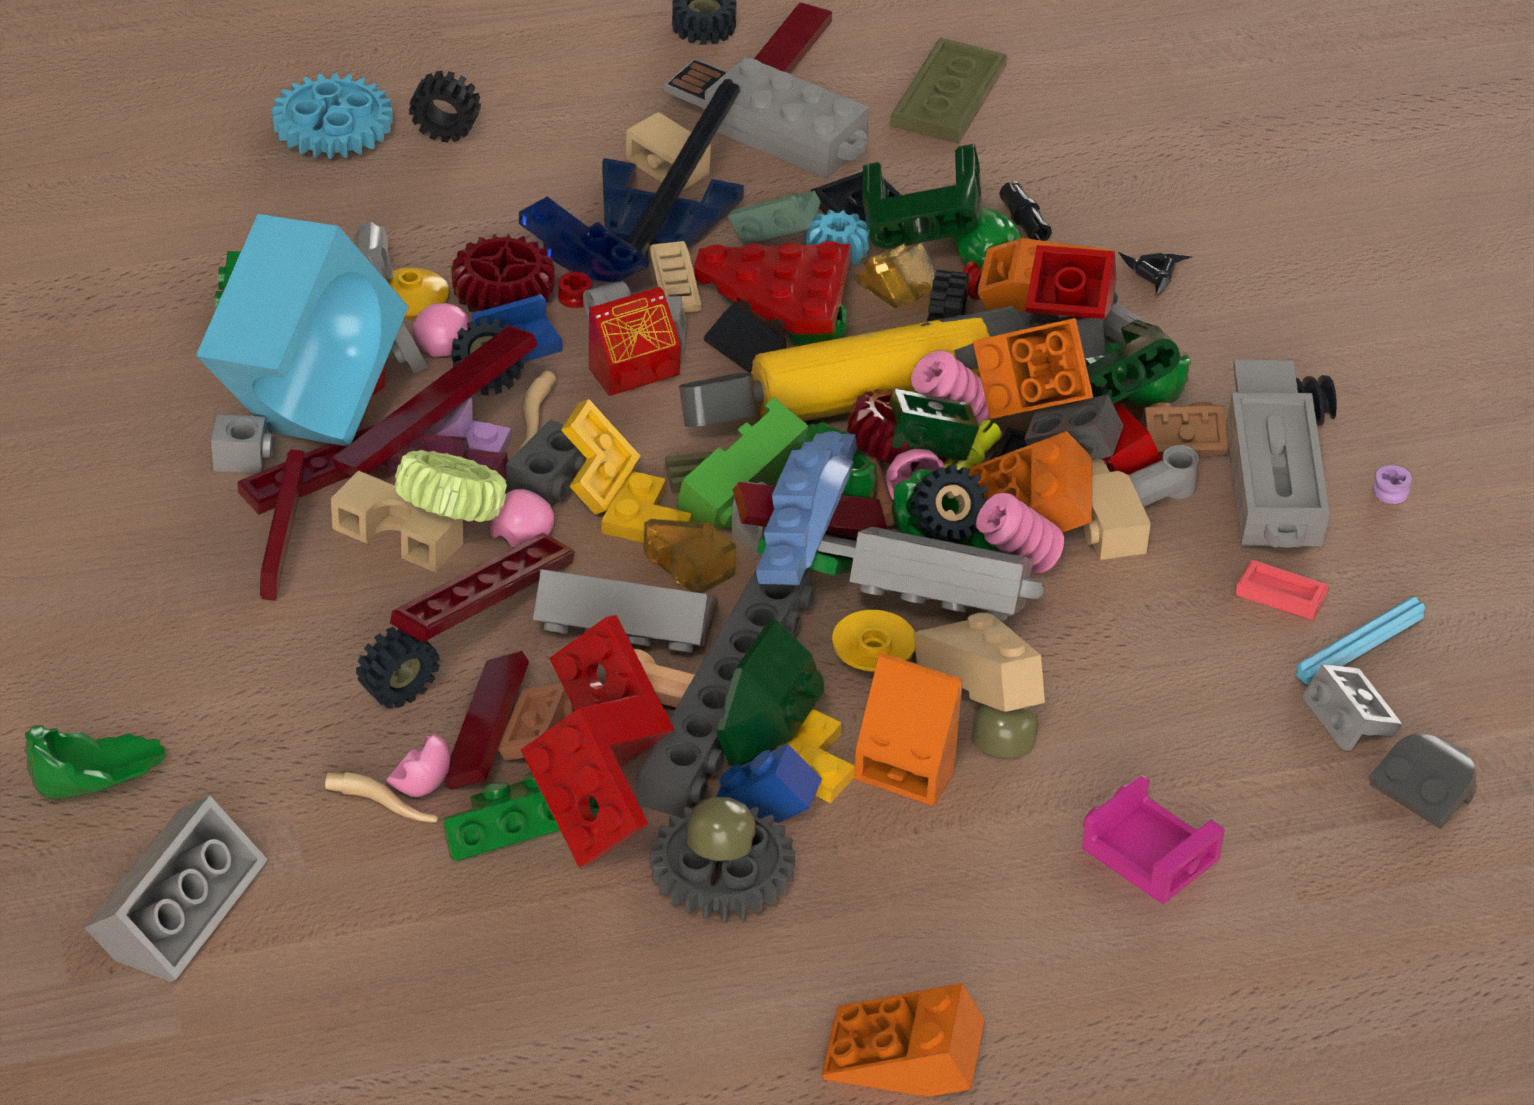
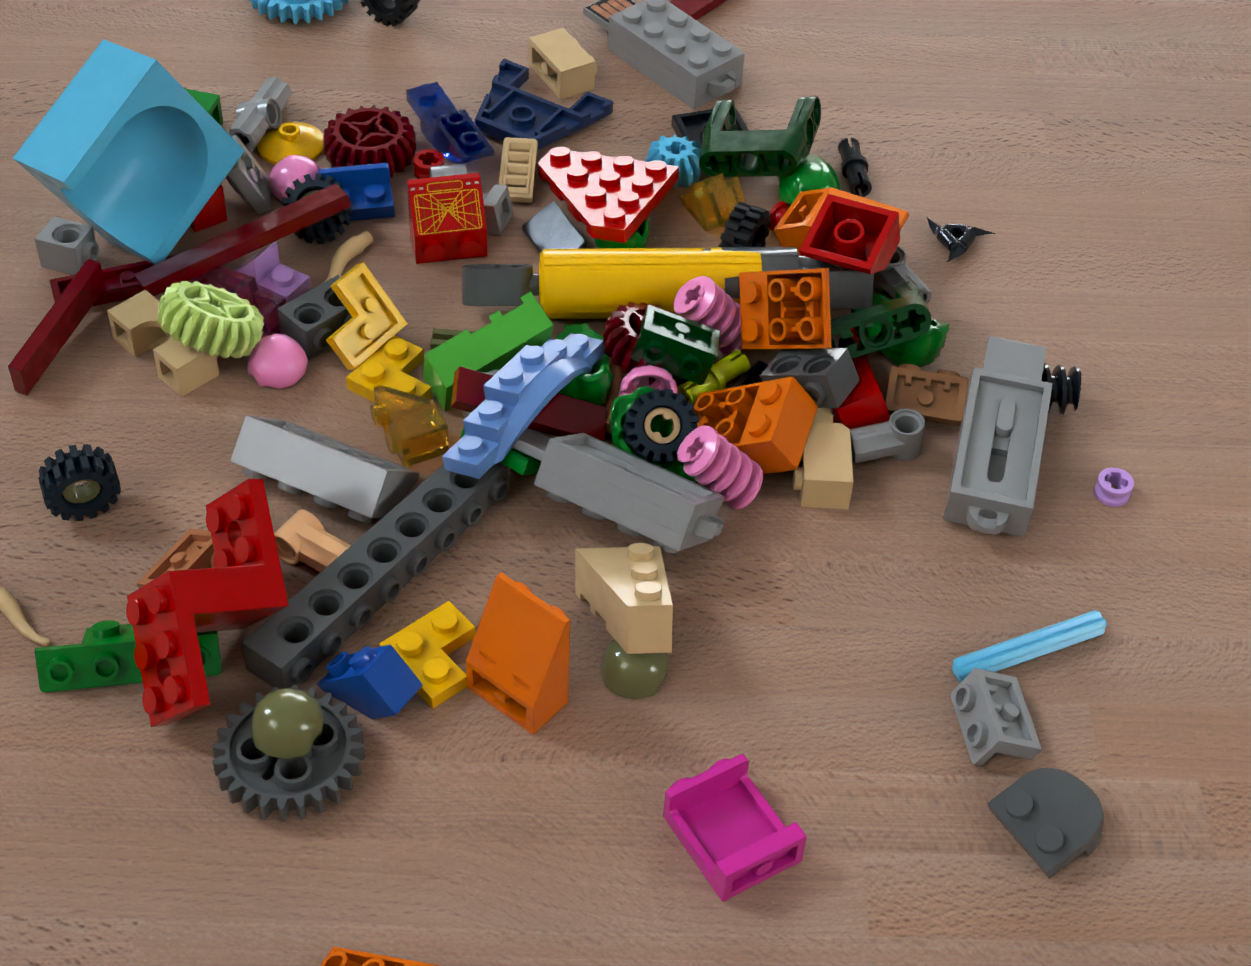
camera: 15 degrees right, 5 degrees up
(422, 770) = (53, 592): bright pink hair -> none
(481, 587) = (188, 422): dark red tile -> none
(486, 720) = (140, 553): dark red tile -> none
(683, 166) = (558, 77): black axle -> none
(768, 695) = (404, 583): dark green wedge -> none
(775, 217) = (625, 131): sand green bracket -> none
(867, 633) = (540, 547): yellow dish -> none
(948, 90) = (829, 53): olive tile -> none
(1282, 589) = (968, 574): coral tile -> none

